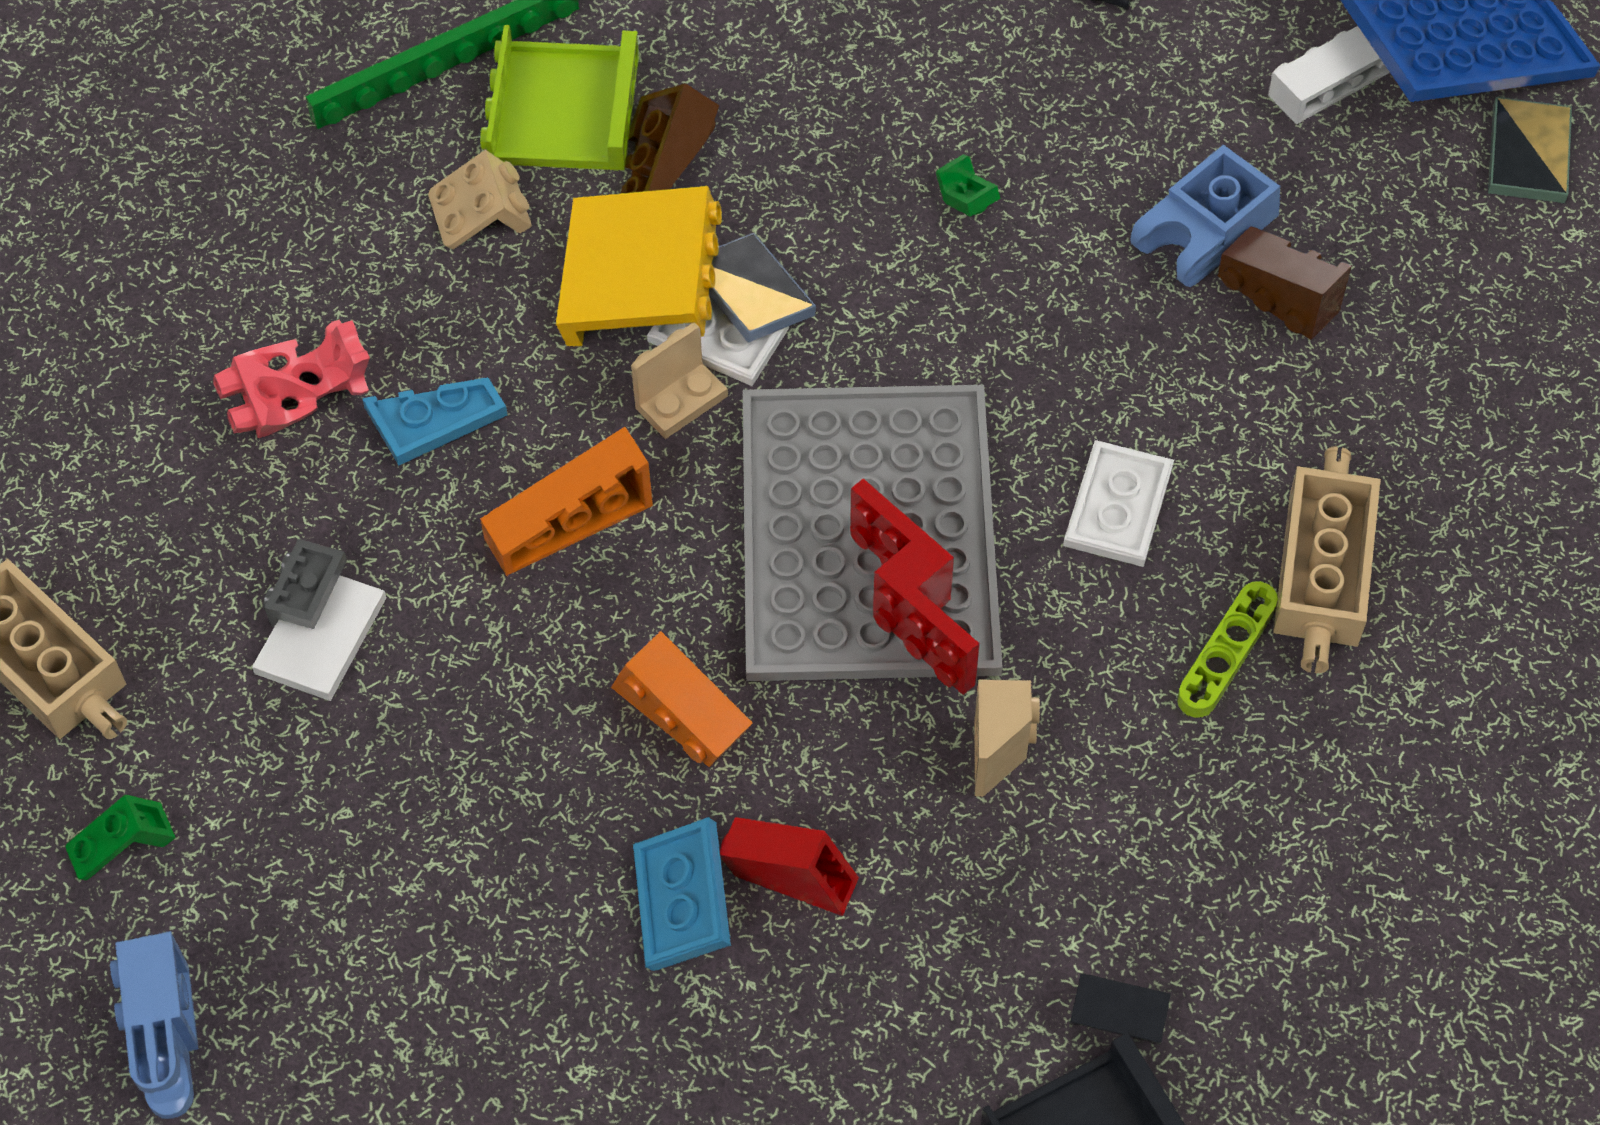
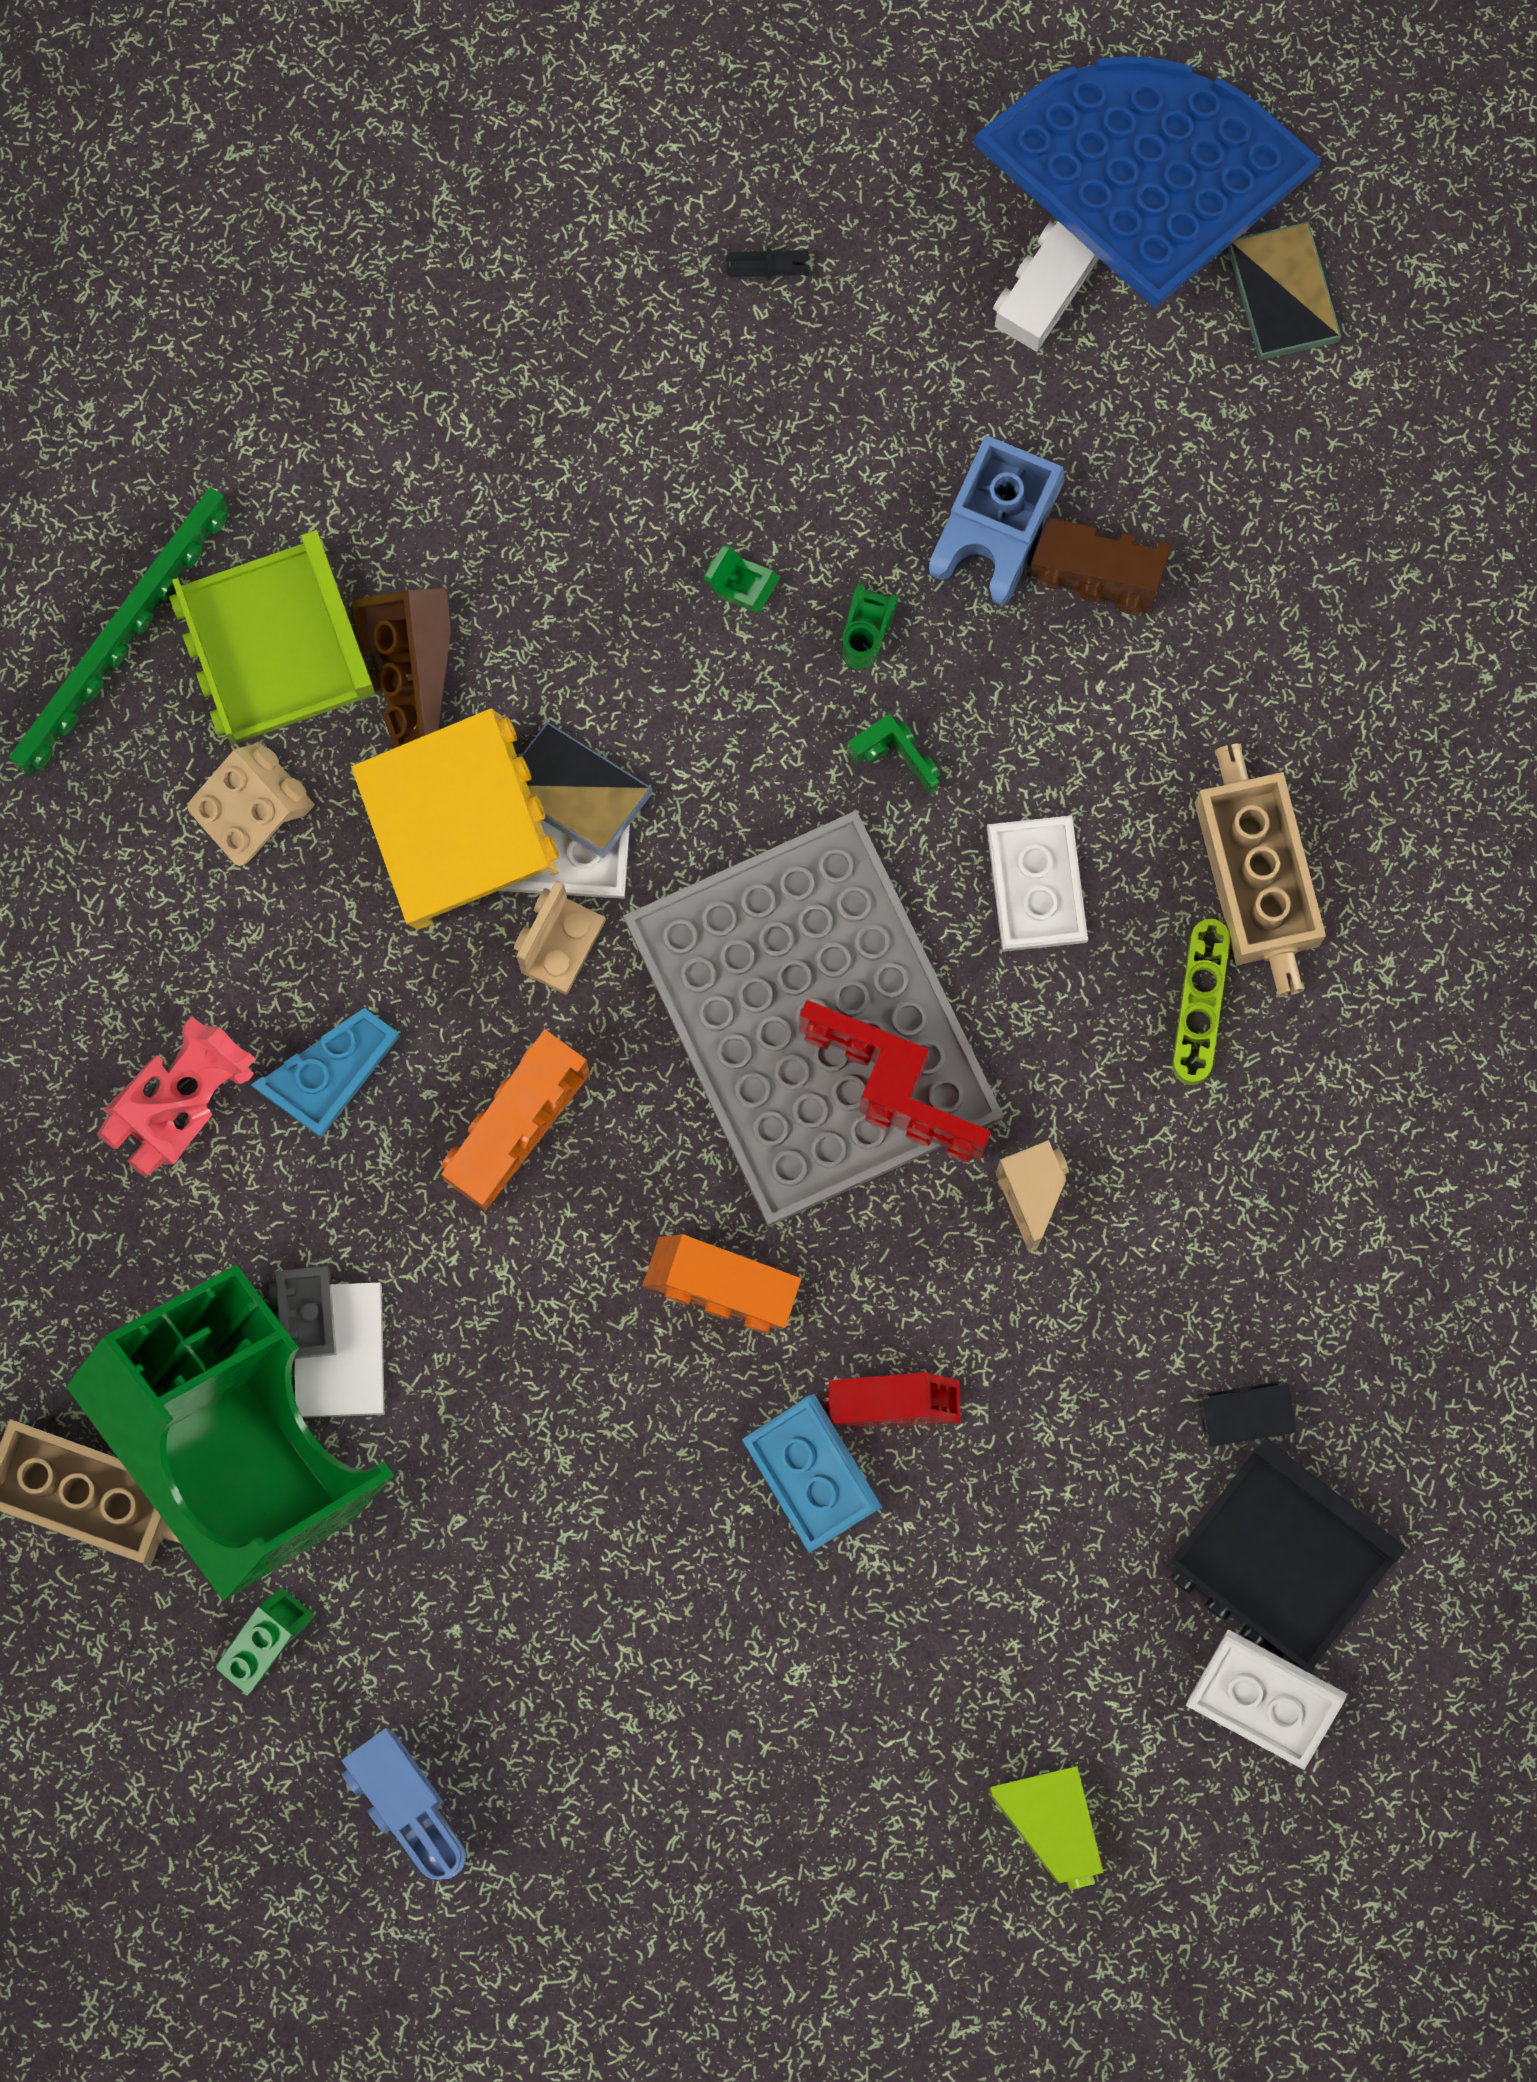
camera: 25 degrees left, 20 degrees up
(169, 625) = (213, 1433): none -> green piece
(1032, 338) = (874, 742): none -> green bracket
(1058, 259) = (867, 620): none -> green piece

